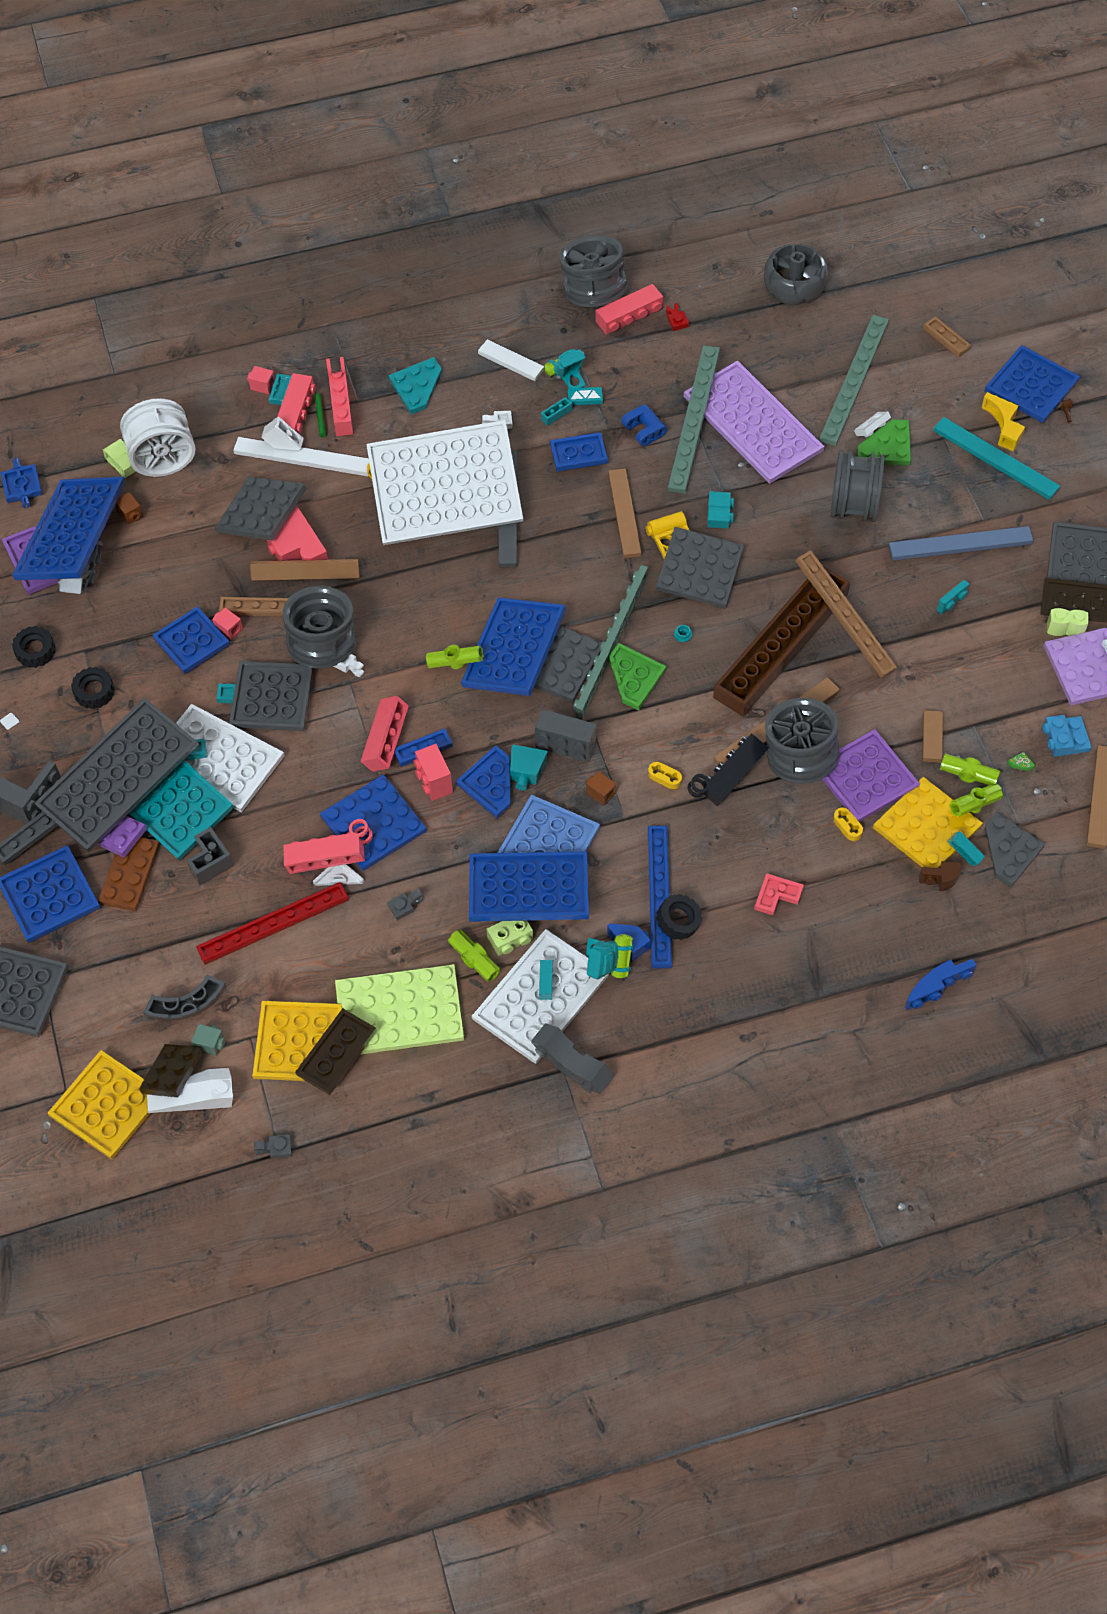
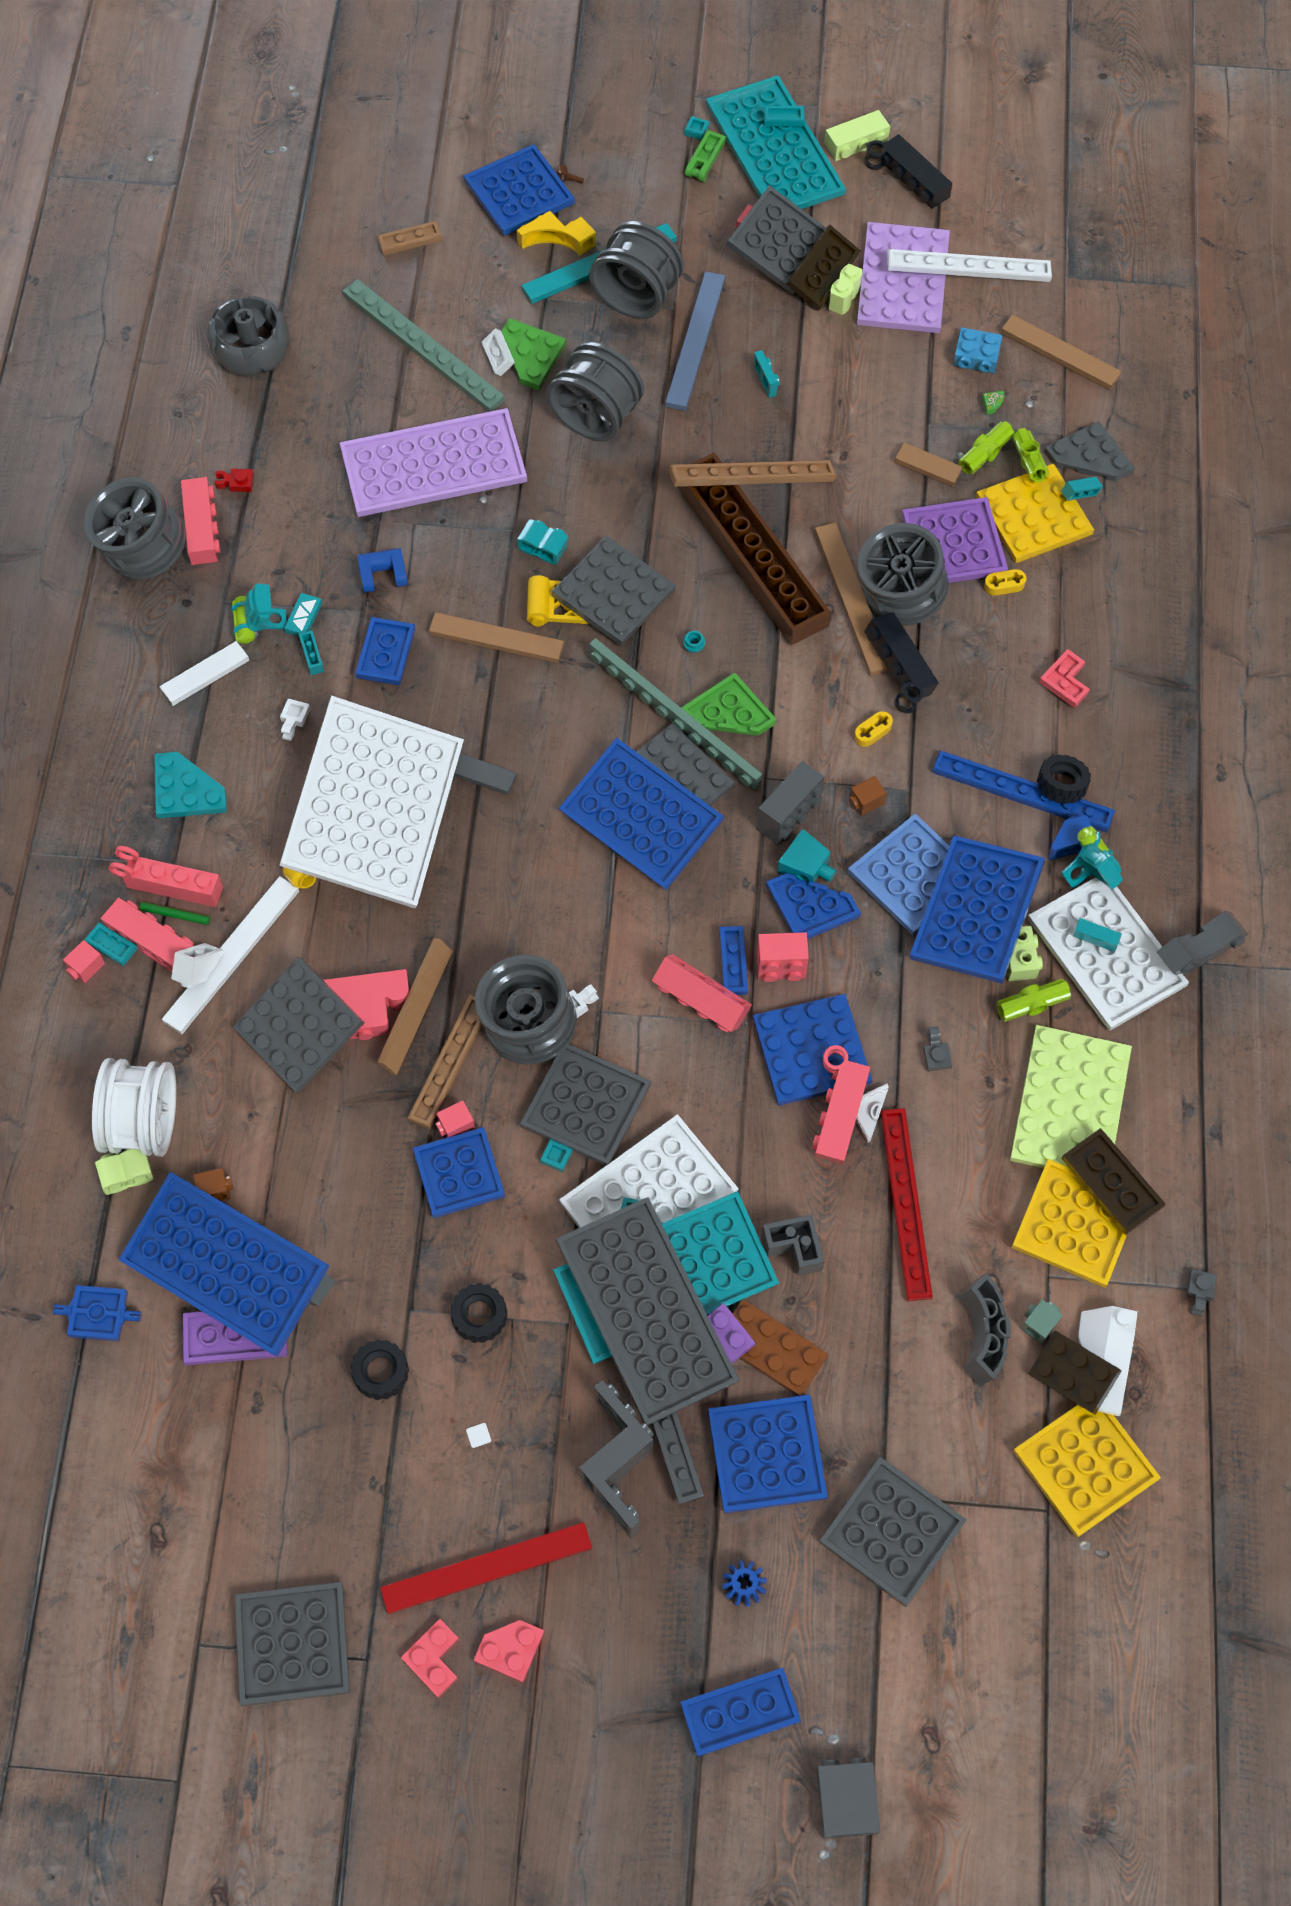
camera: 70 degrees left, 5 degrees up
(454, 657) = (622, 895): lime piece -> none
(694, 419) = (403, 515): sand green plate -> none
(933, 984) = (1224, 580): blue slope -> none
(945, 876) = (1103, 521): reddish brown brick -> none
(986, 472) = (636, 270): none -> dark grey wheel

